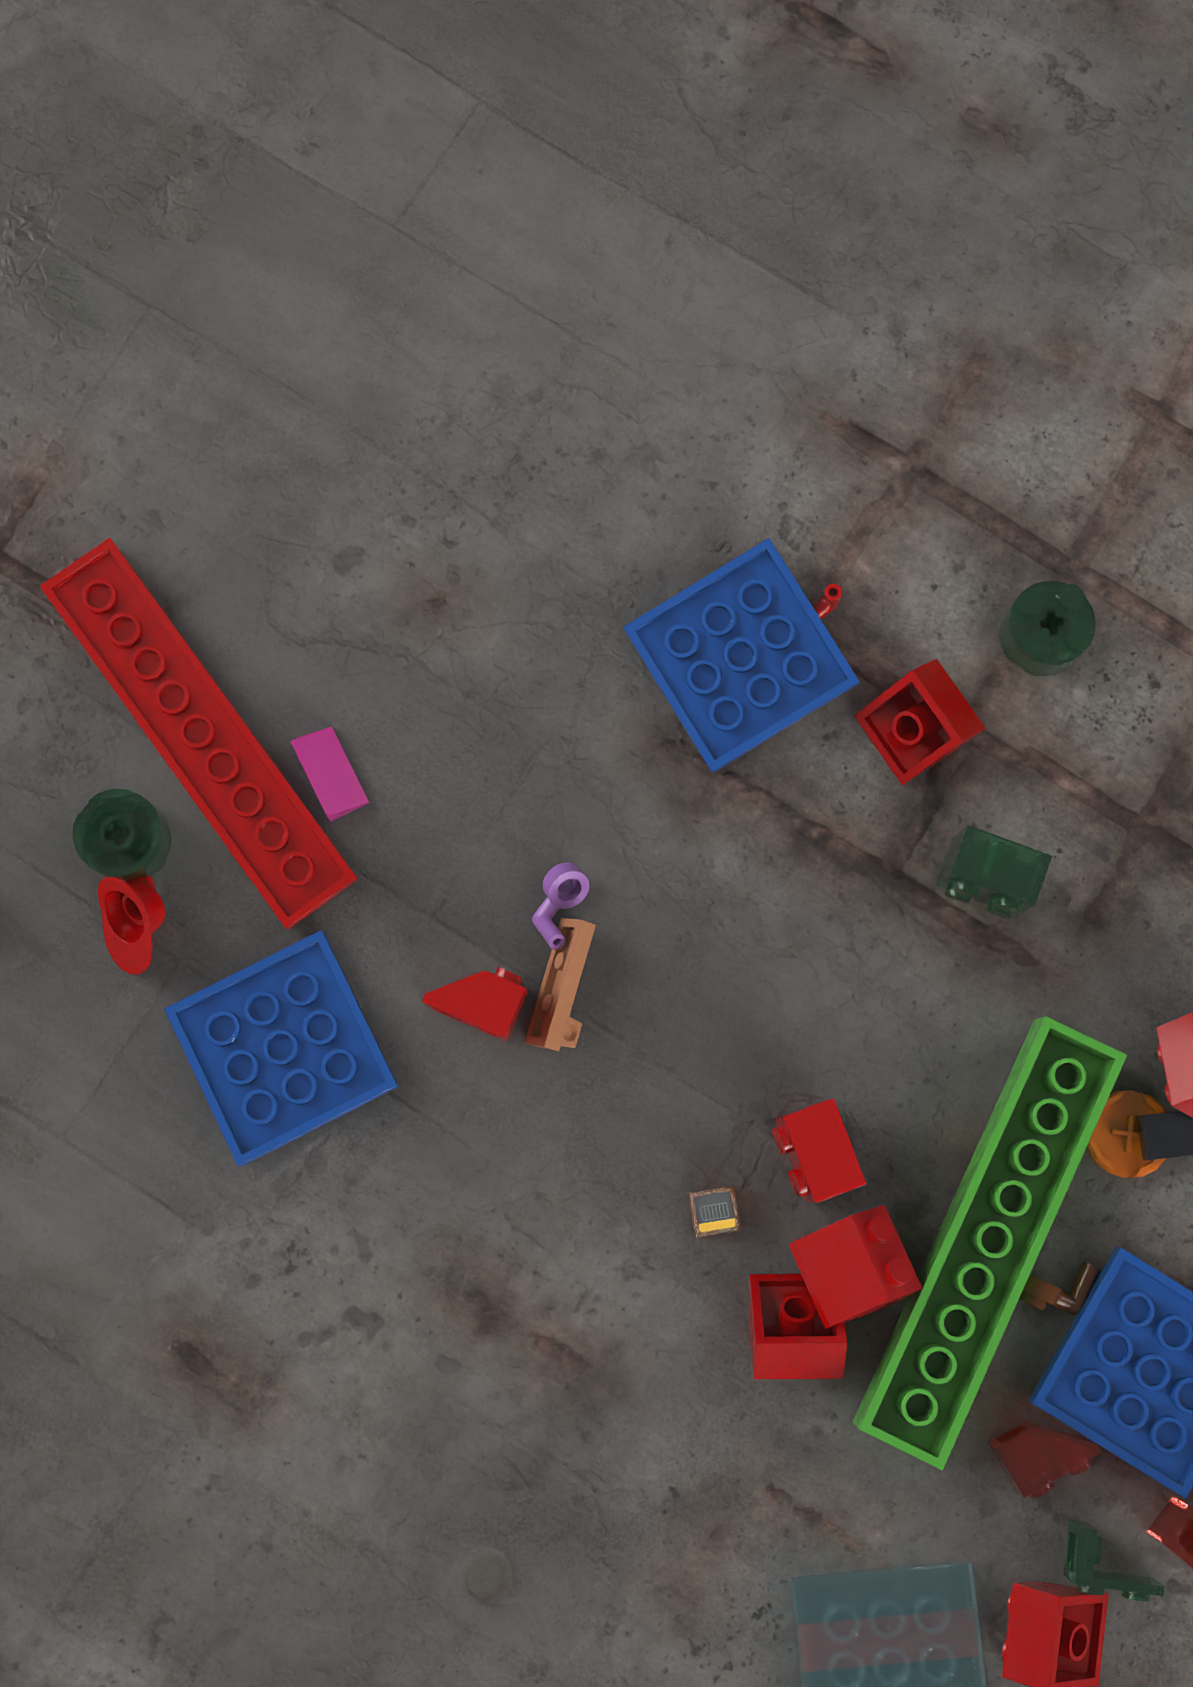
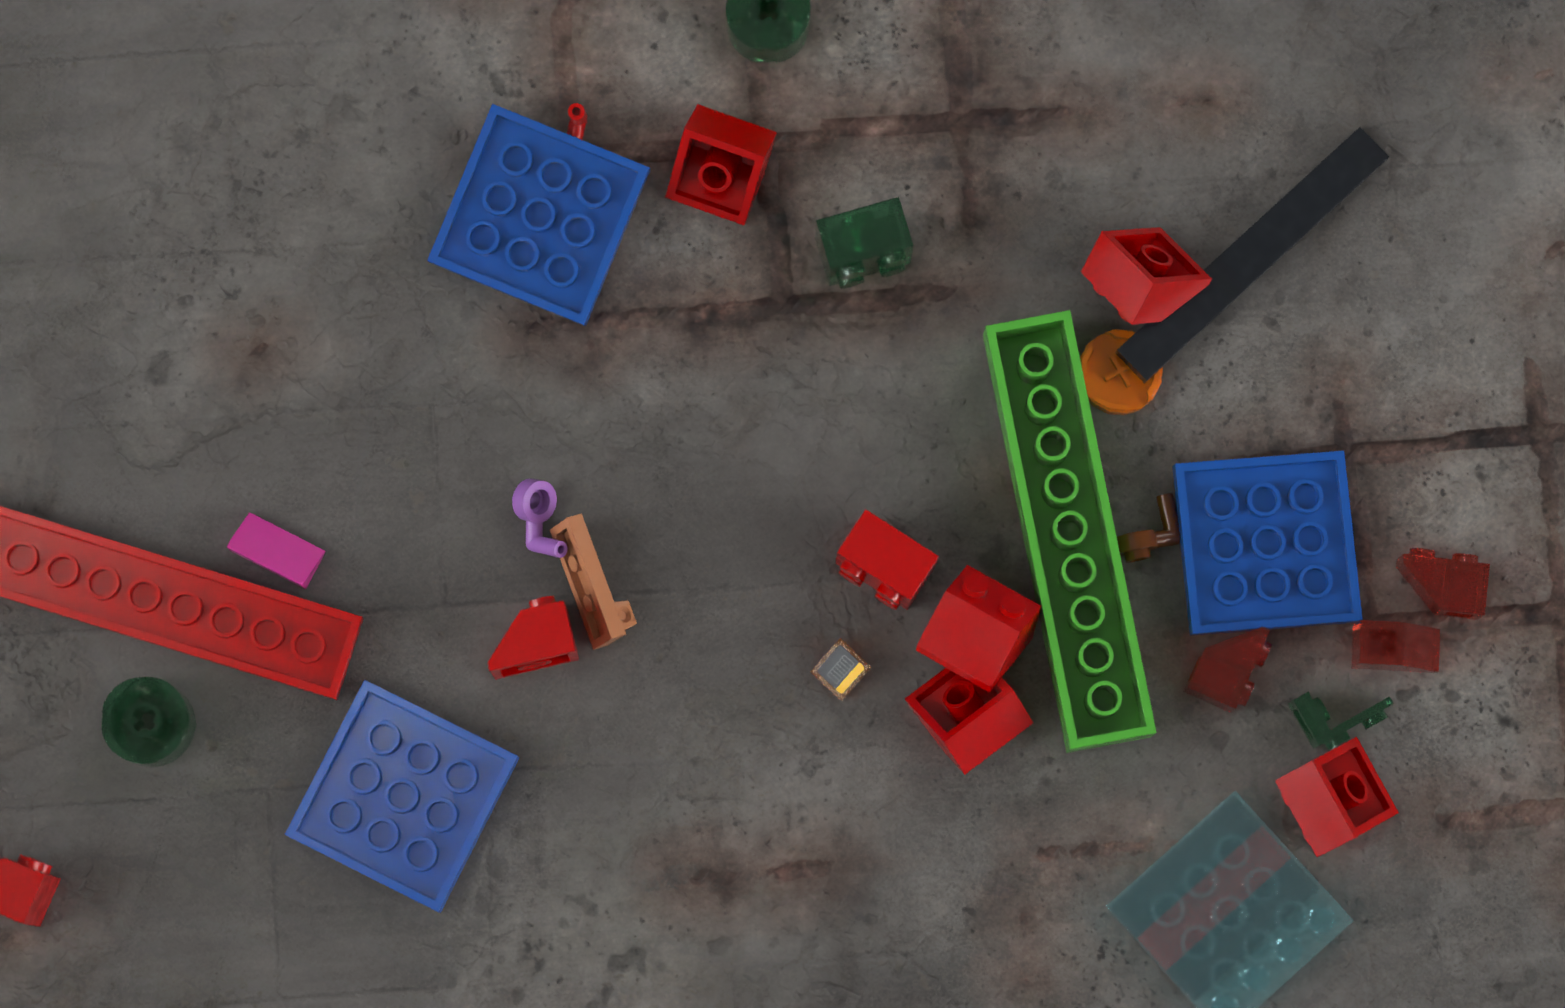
camera: 35 degrees left, 0 degrees up
(129, 918) = (204, 785): red piece -> none

